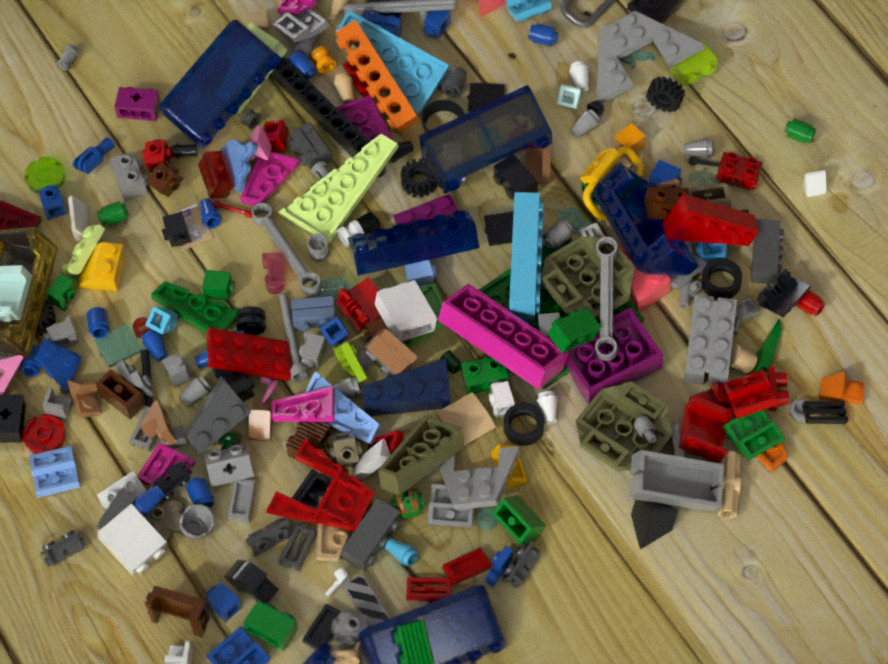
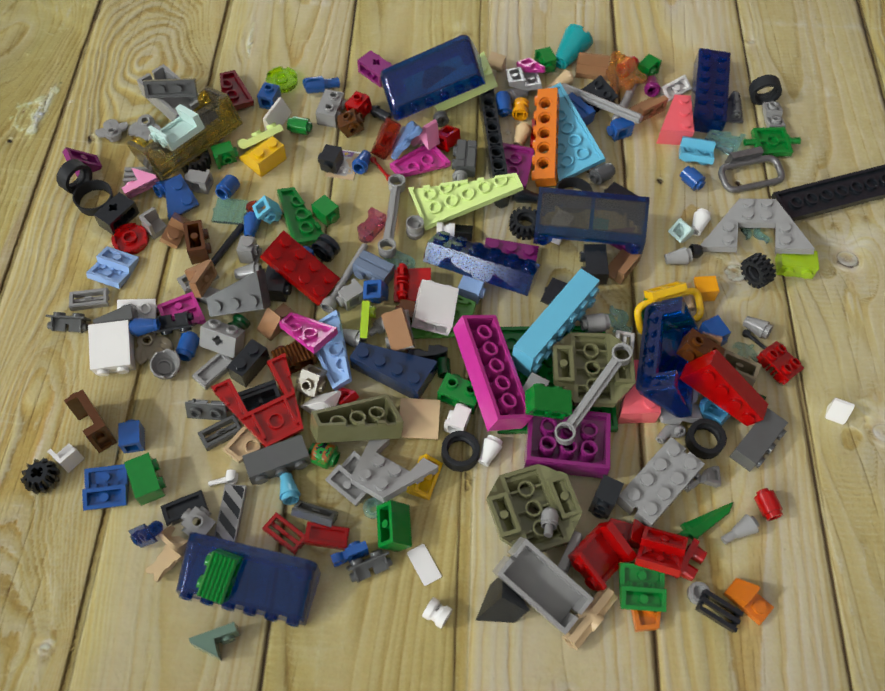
camera: 30 degrees right, 0 degrees up
(68, 56) = (357, 19): light grey pin -> none
(75, 508) = (88, 301): none -> light grey tile
(136, 378) = (214, 237): light grey slope -> none
(251, 579) = (161, 436): black brick -> none
(272, 385) = (303, 302): bright pink bar -> none
(272, 470) = (248, 363): none -> black brick
(433, 354) = (433, 353): none -> black slope
(442, 555) = (314, 513): none -> dark grey tile
(564, 535) = (424, 564): none -> white sticker
(606, 562) = (437, 612): none -> white wheel
(675, 381) = (605, 497): none -> black brick
(742, 359) = (677, 516): tan brick -> none
(783, 295) = (749, 485): black hinge -> none
(800, 131) = (853, 362): green brick -> none
(802, 333) = (745, 527): none -> light grey cone

